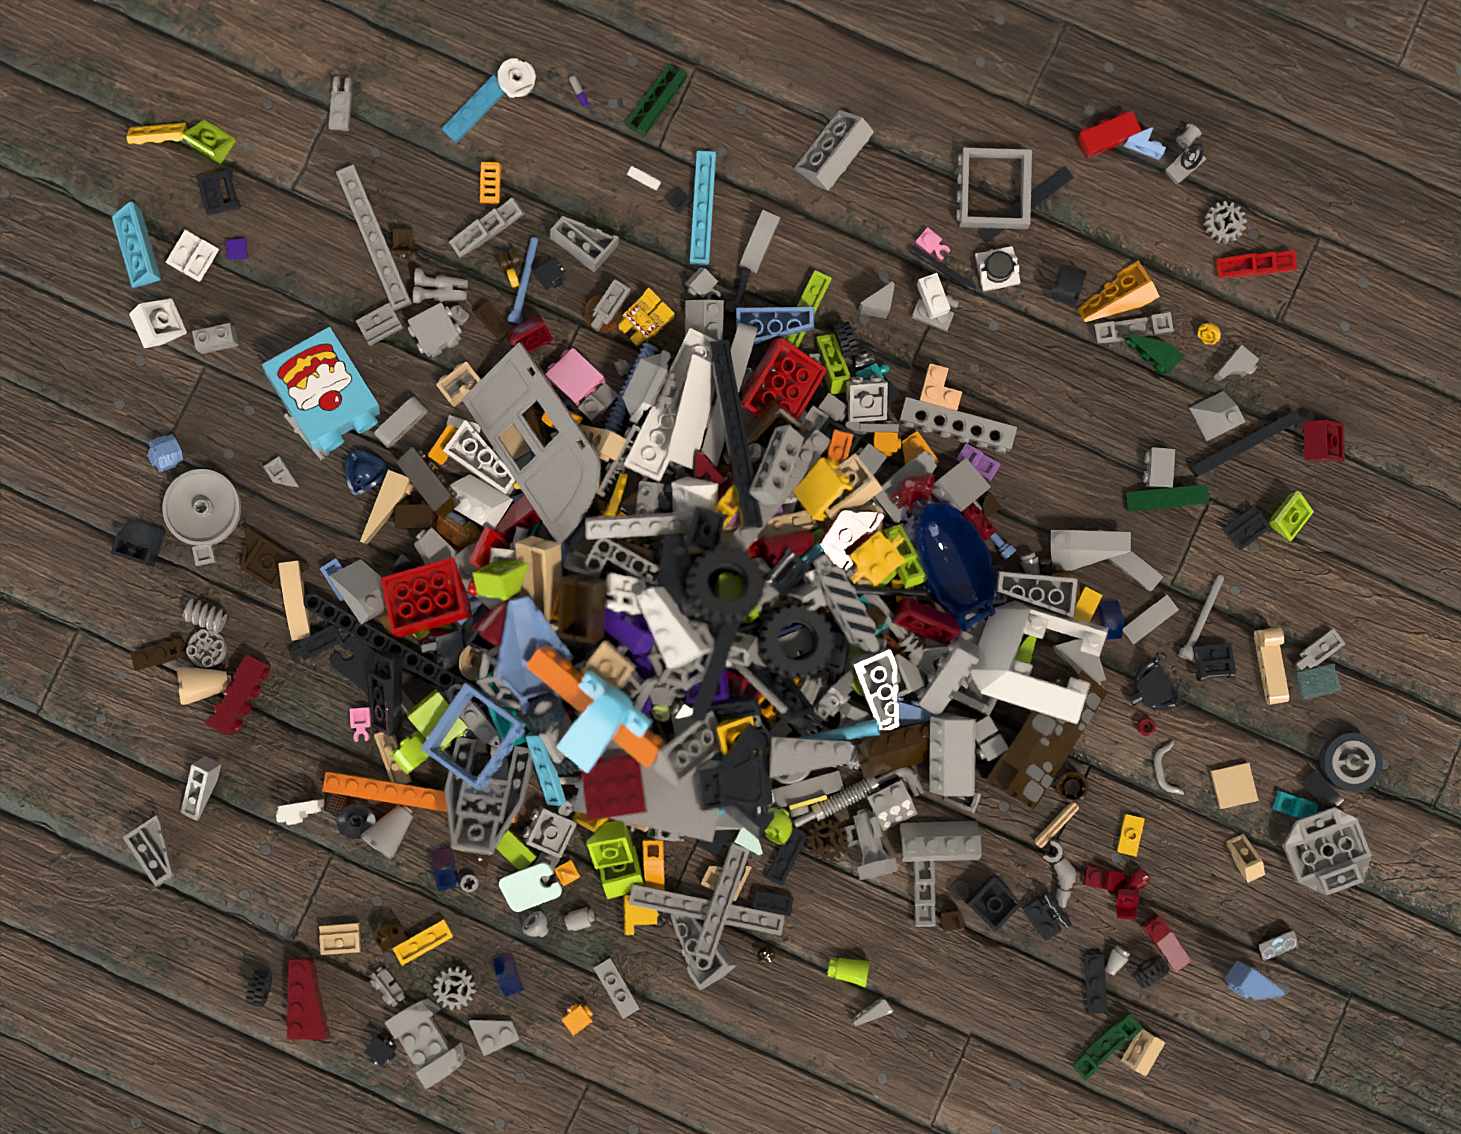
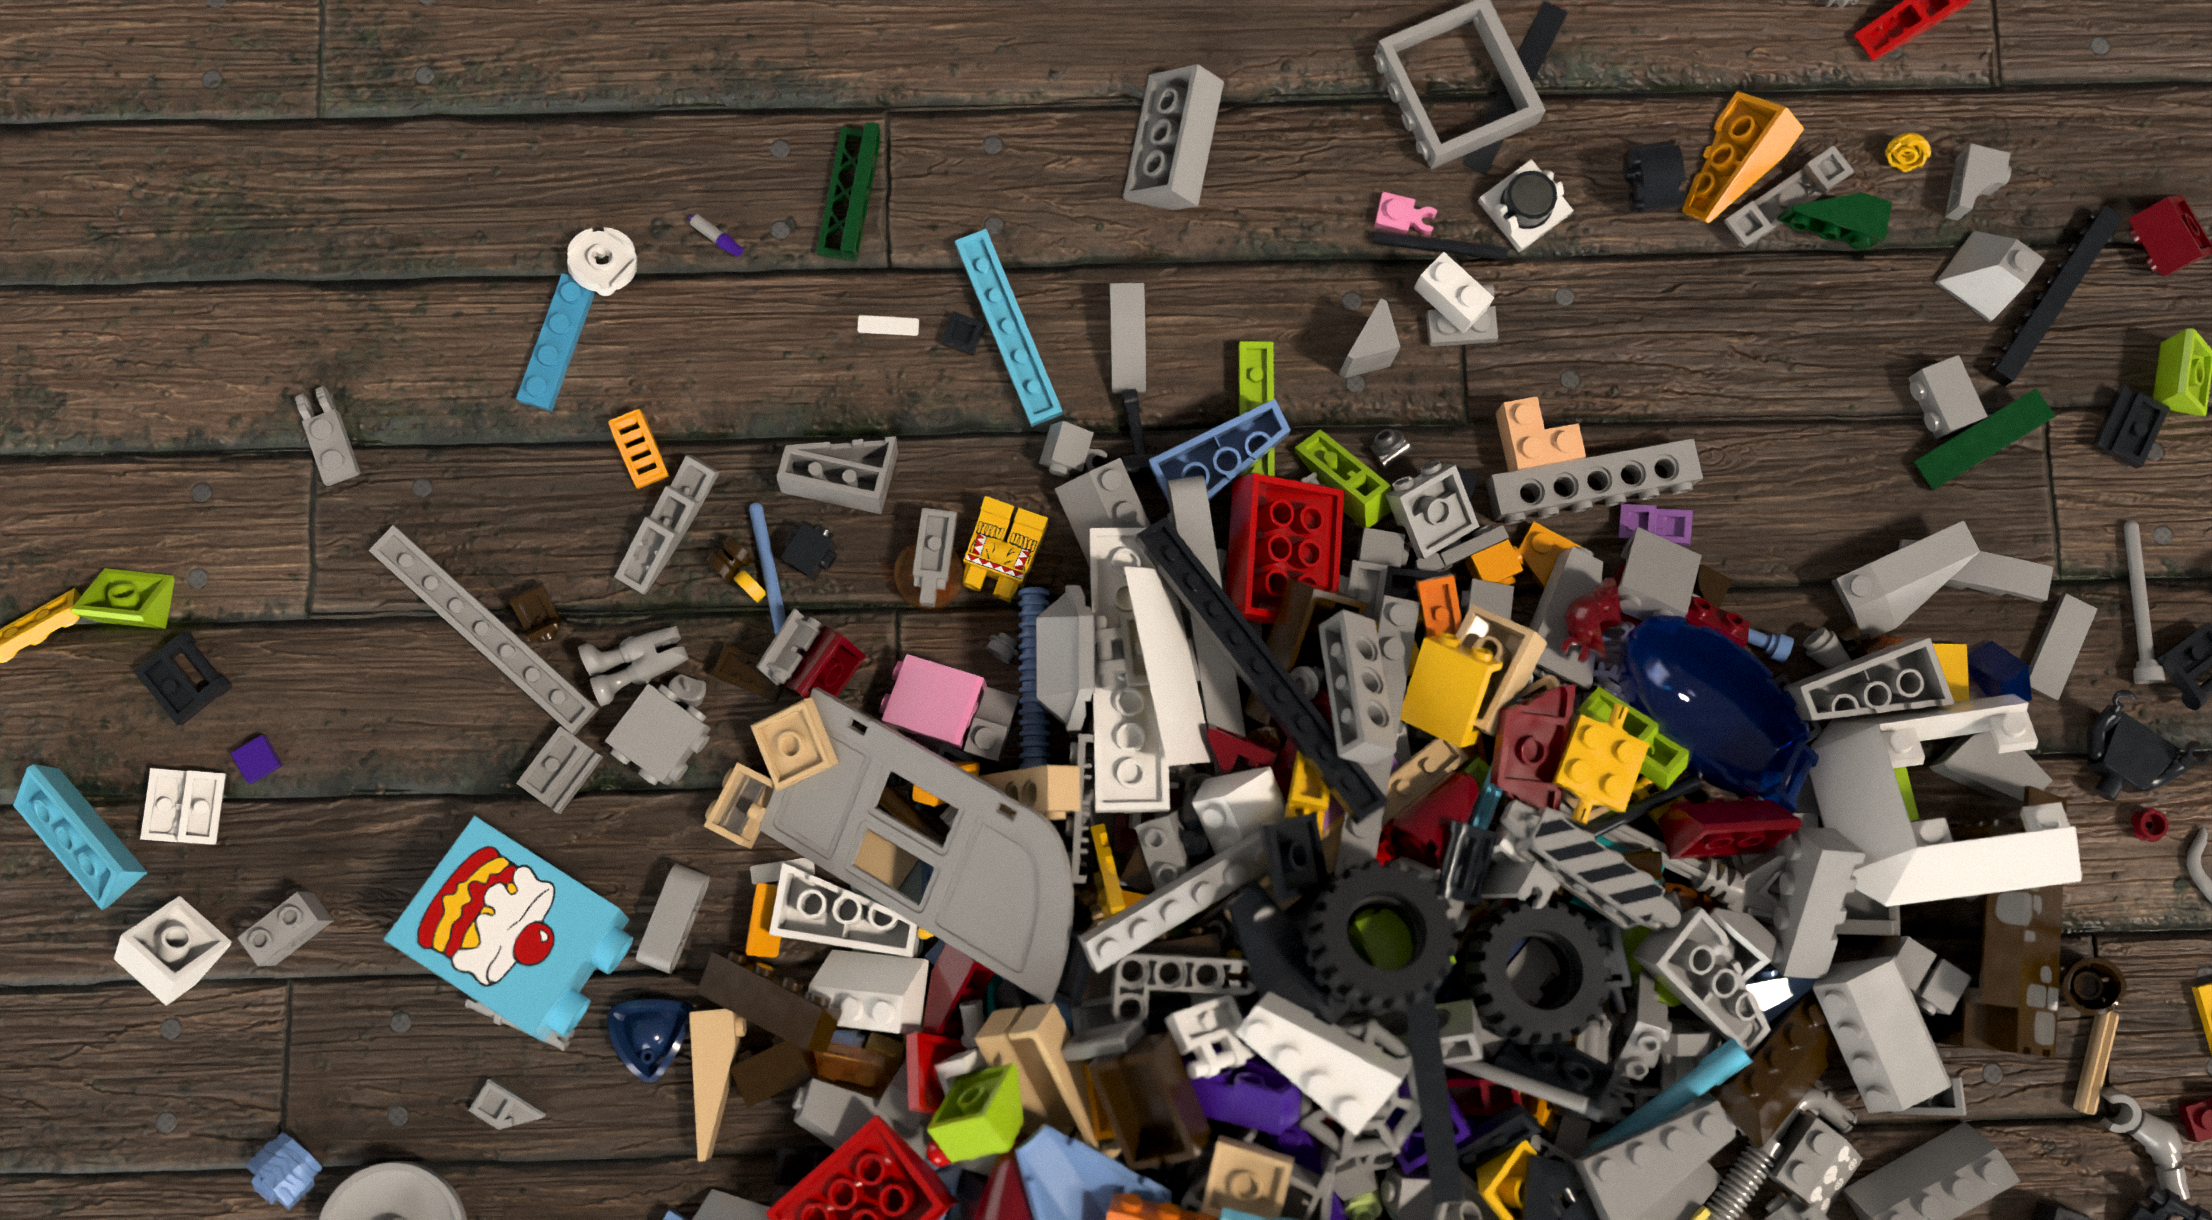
camera: 30 degrees left, 5 degrees down
(497, 365) = (794, 744): none -> tan tile
(514, 317) = (783, 653): none -> light grey hinge
(574, 571) = (1103, 1041): none -> light grey tile
(846, 339) = (1347, 426): black tyre -> none
(873, 370) = (1415, 459): teal piece -> none

